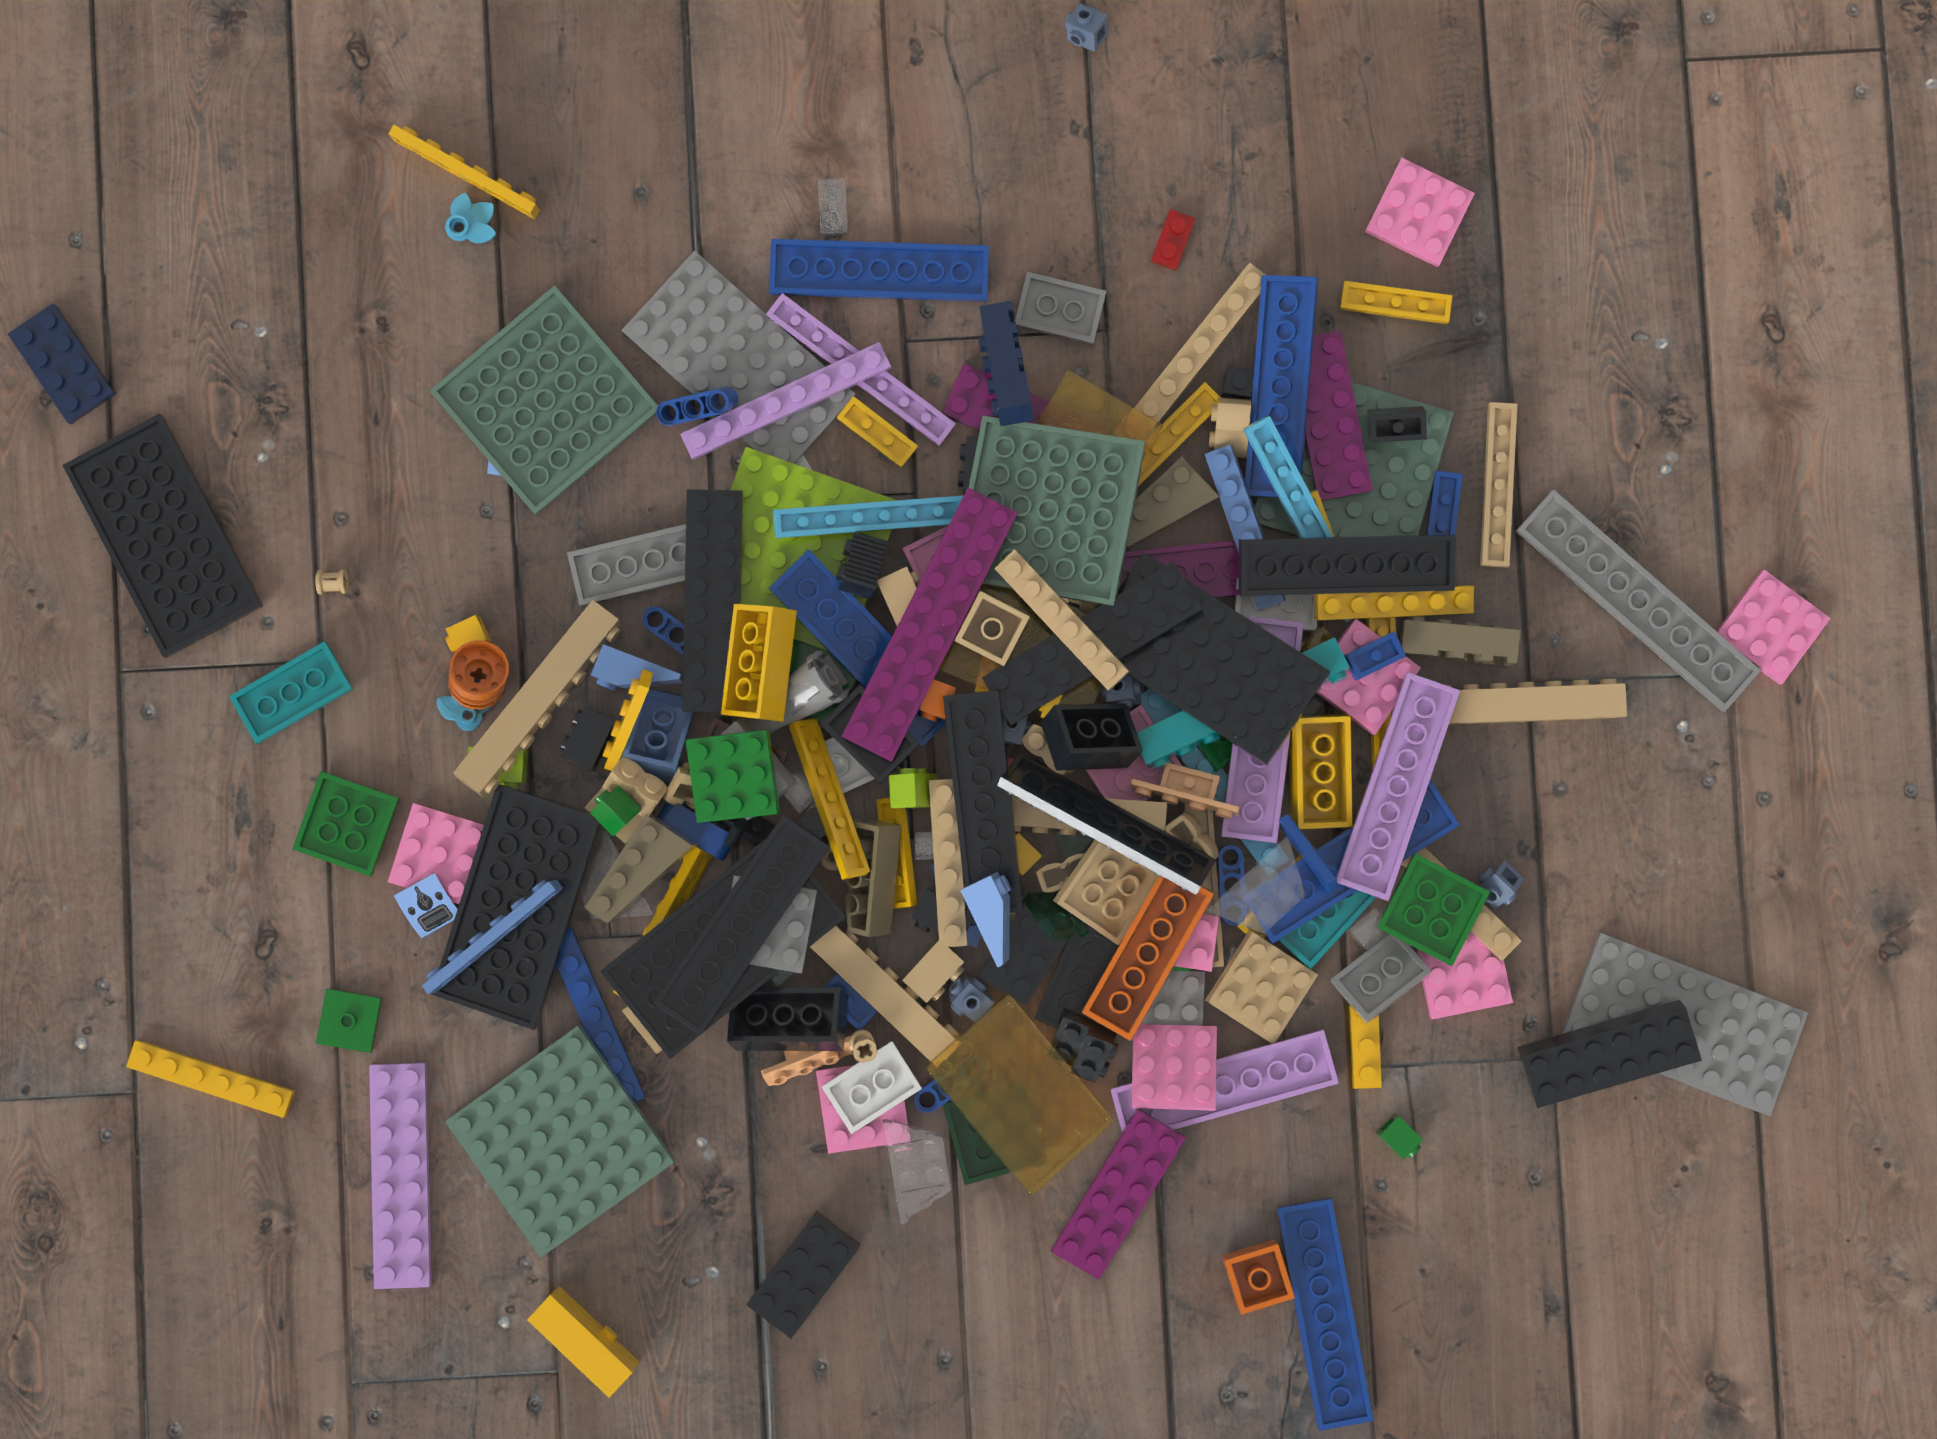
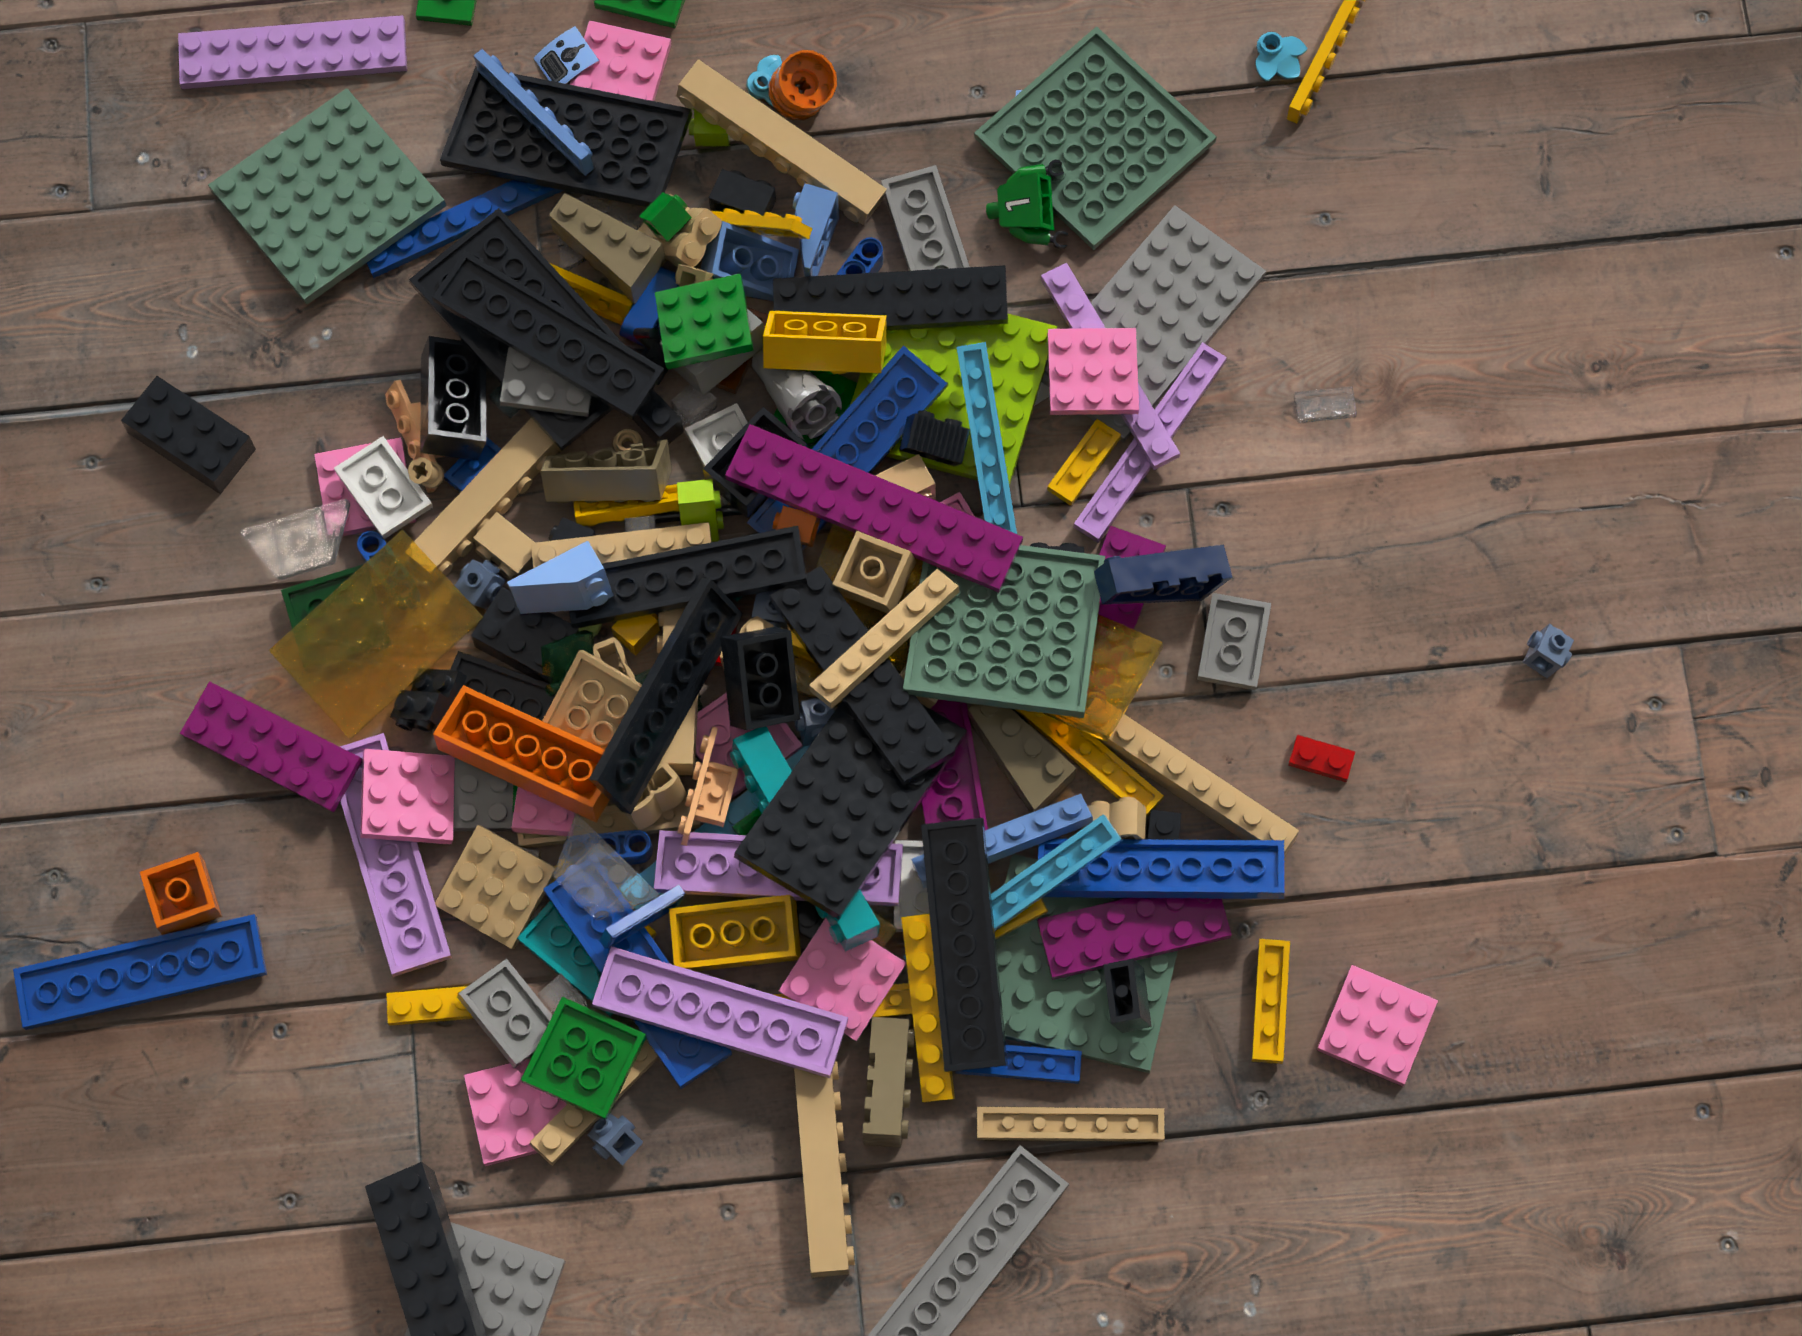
camera: 90 degrees right, 15 degrees down
(465, 632) = (849, 79): yellow brick -> none
(584, 1341) = (122, 225): yellow brick -> none
(617, 467) = (1027, 205): none -> green torso
(685, 406) = (1097, 278): blue beam -> none
(797, 415) = (1093, 371): none -> bright pink plate
(829, 798) = (684, 425): yellow plate -> none
(879, 270) = (1260, 456): blue plate -> none
(1374, 655) = (864, 978): blue plate -> none
(1400, 1137) = (332, 1044): green brick -> none

